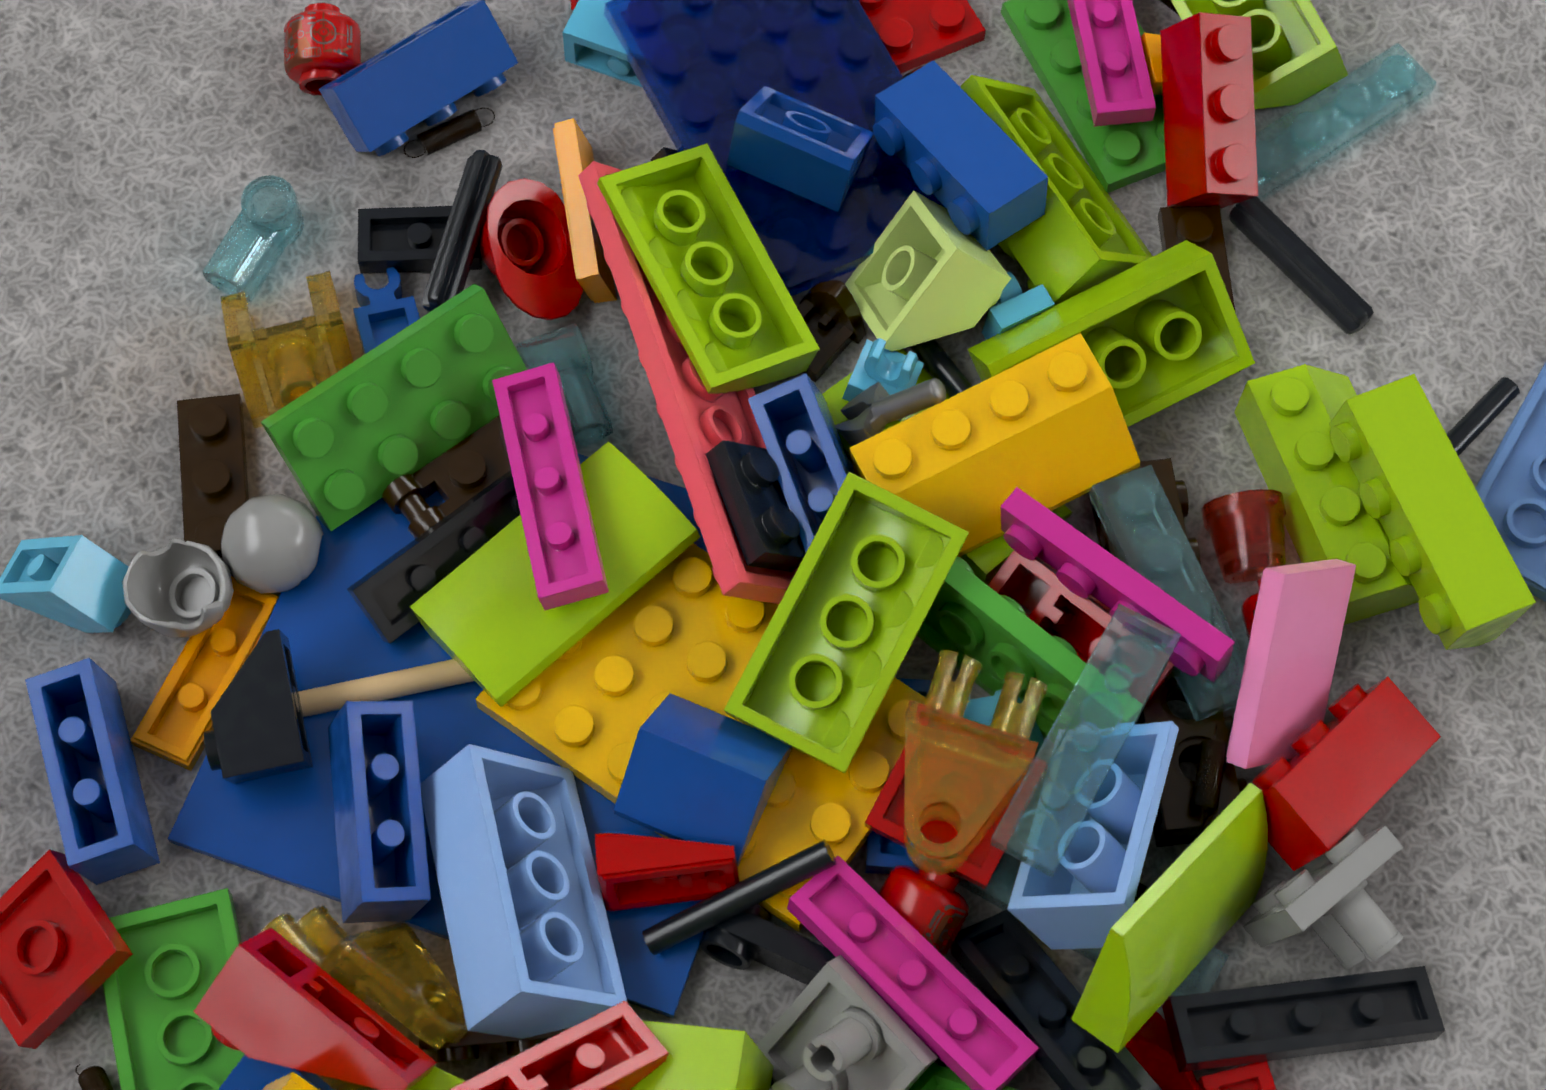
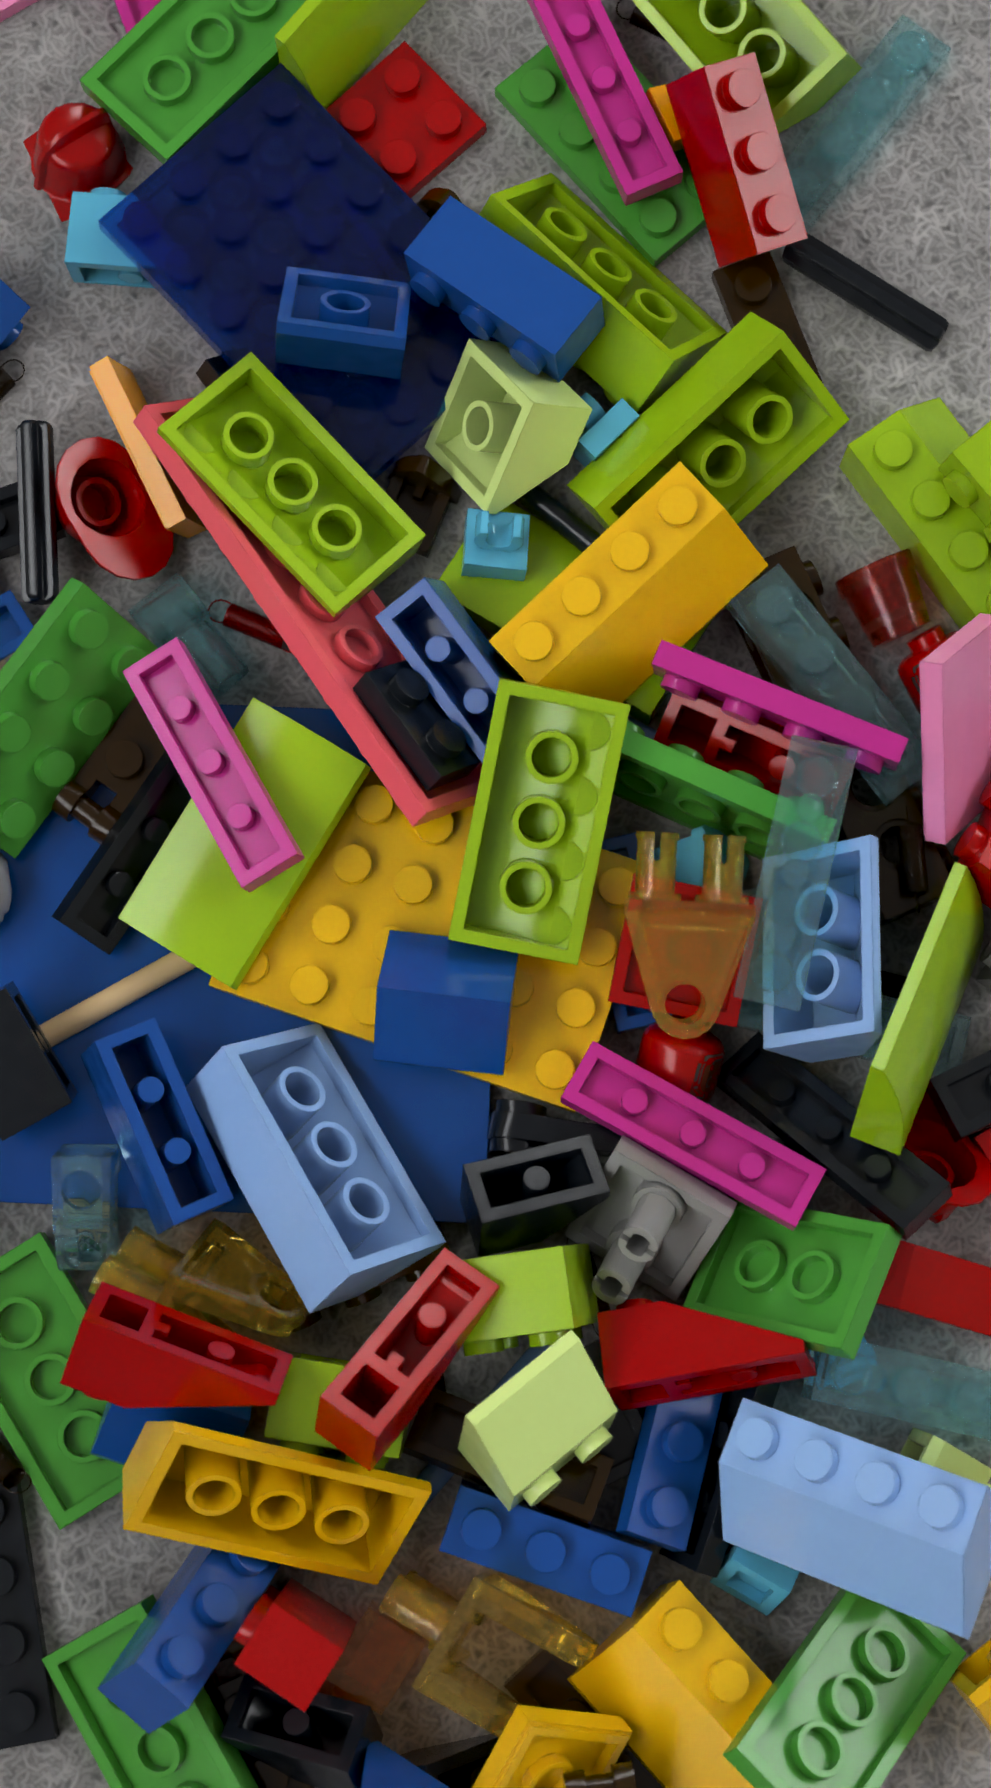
camera: 10 degrees left, 15 degrees up
(280, 869) = (85, 1204): none -> clear light blue leg
(629, 393) = (251, 624): none -> red piece
(661, 871) = (426, 1104): red slope -> none
(731, 982) = (530, 1193): none -> black slope
(739, 897) = (514, 1104): black bar -> none
(875, 408) = (500, 584): flat silver bar -> none

